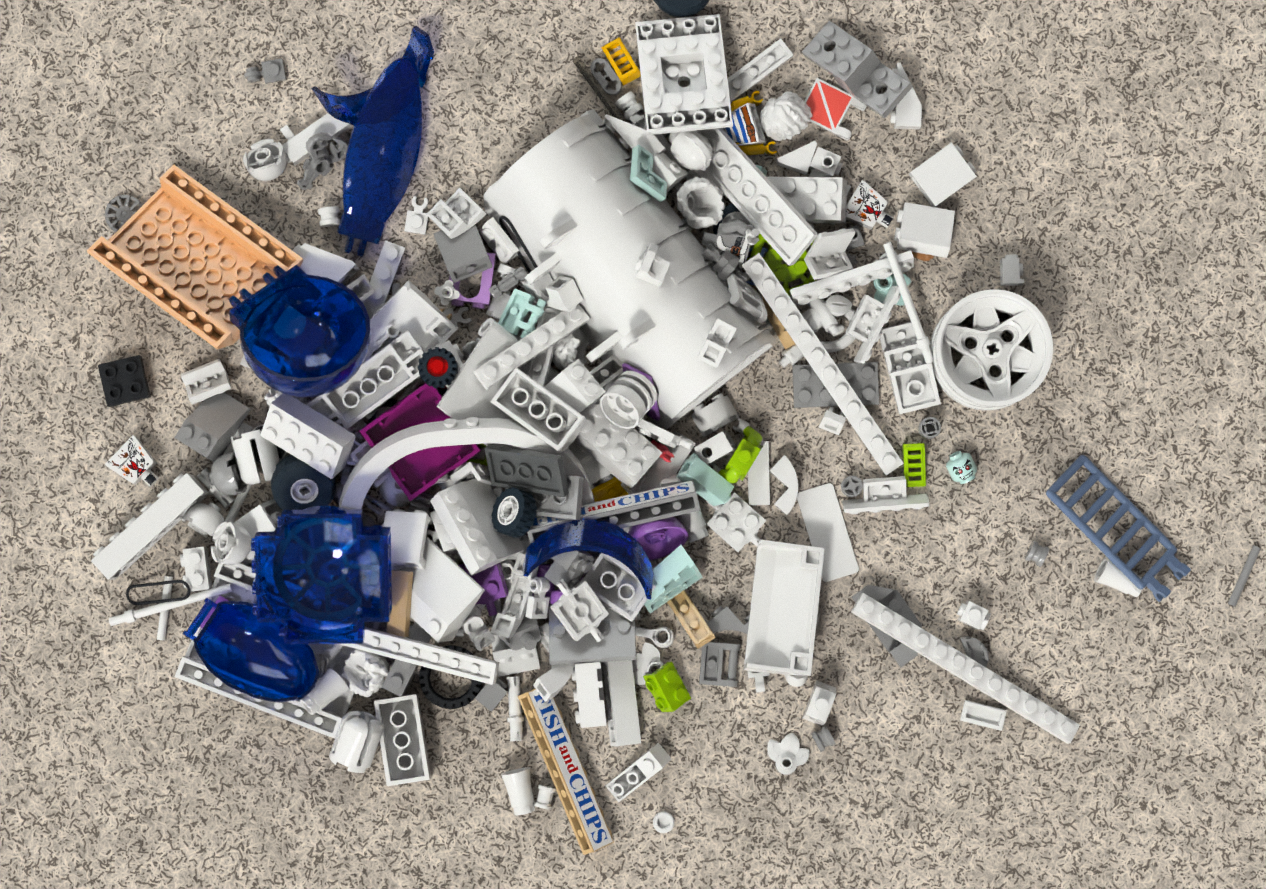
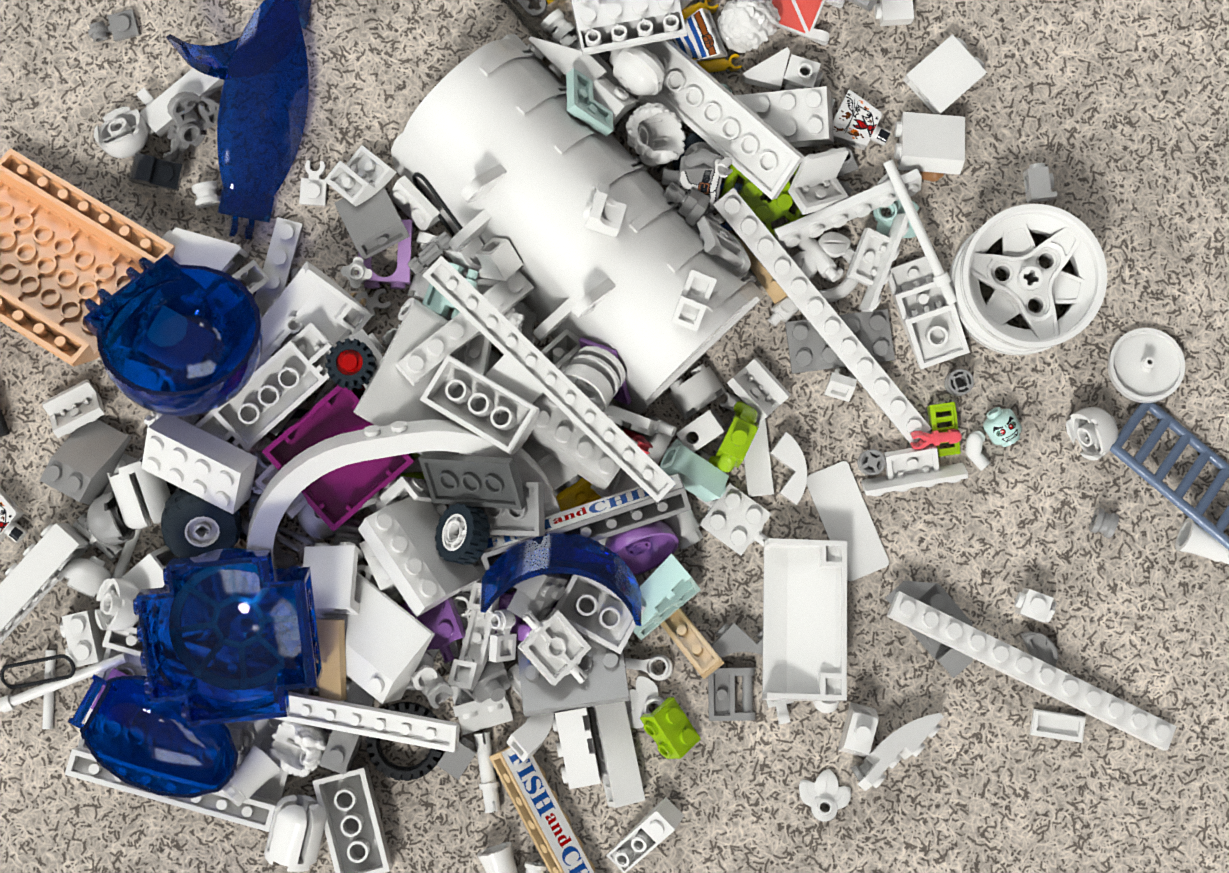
camera: 10 degrees left, 0 degrees up
(290, 195) = (156, 172): none -> black brick
(596, 395) = (549, 379): none -> white plate
(765, 417) = (759, 388): none -> white bracket
(850, 717) = (900, 744): none -> white slope
(905, 471) = (935, 438): none -> coral piece
(936, 484) = (973, 449): none -> white arm
(1036, 478) = (1094, 431): none -> white cylinder
(1084, 428) = (1146, 365): none -> white piece

